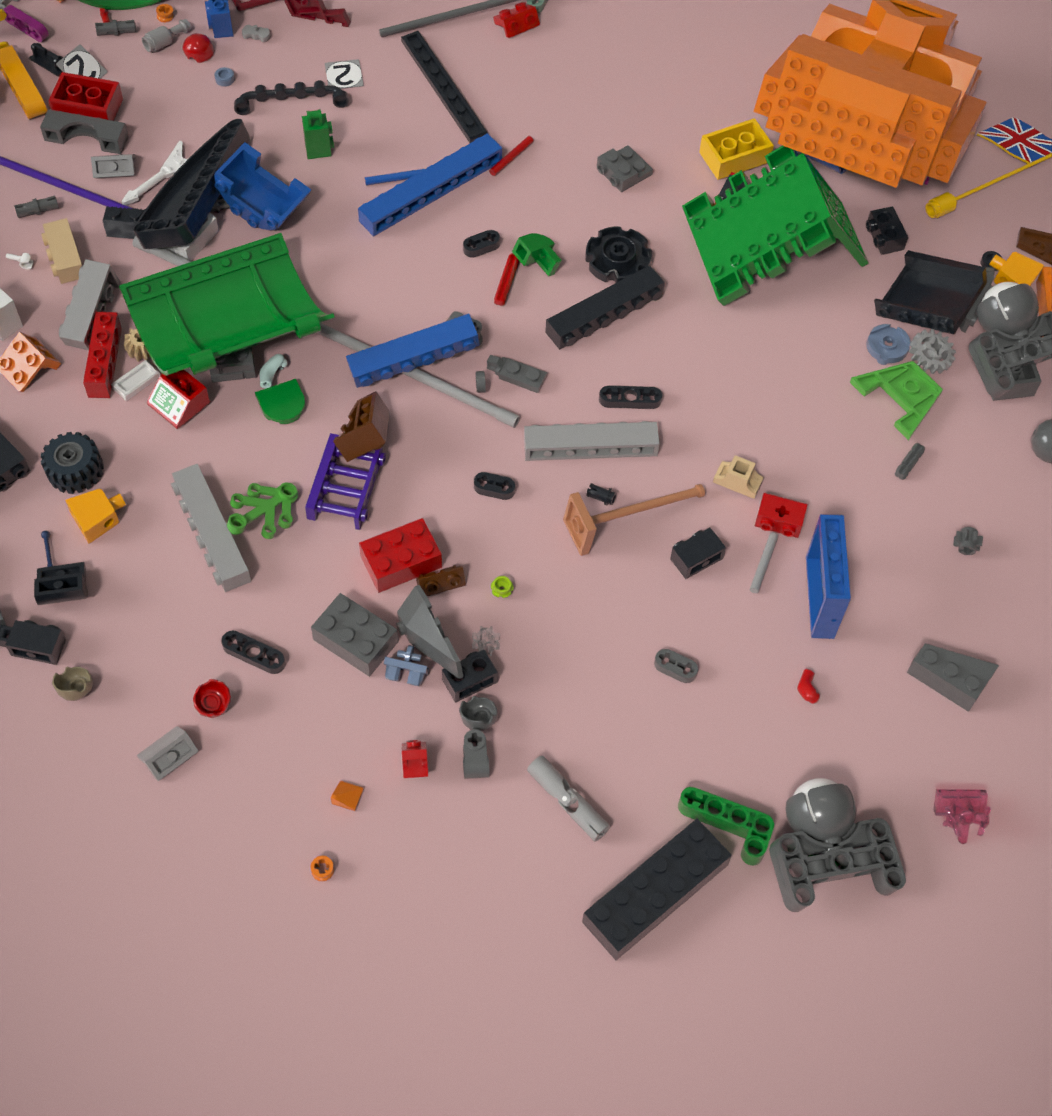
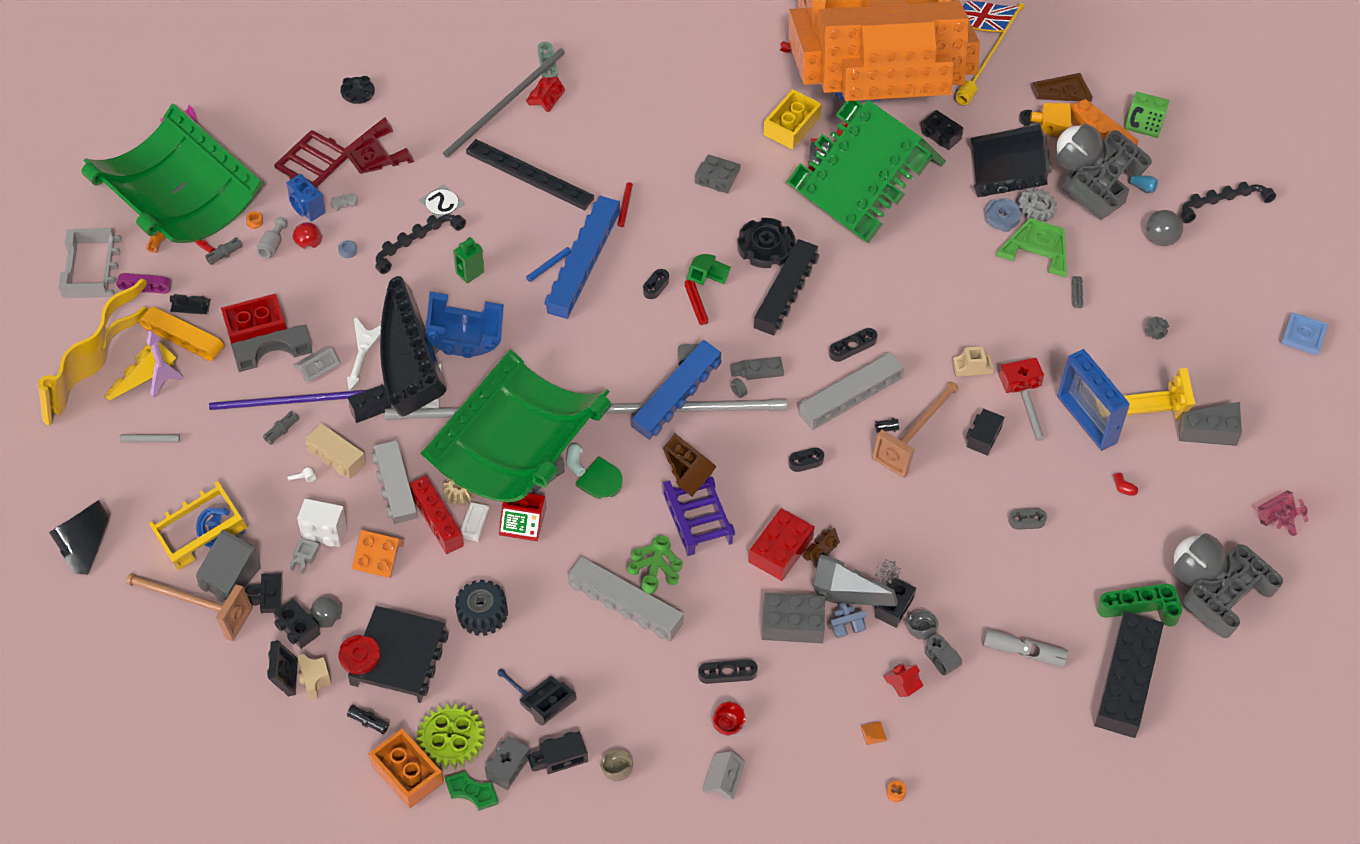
camera: 30 degrees left, 5 degrees down
(82, 63) = (223, 295): sticker -> none
(95, 512) = (528, 636): light orange torso -> none
(502, 581) = (868, 524): lime plate -> none
(902, 615) = (1177, 399): none -> yellow bracket

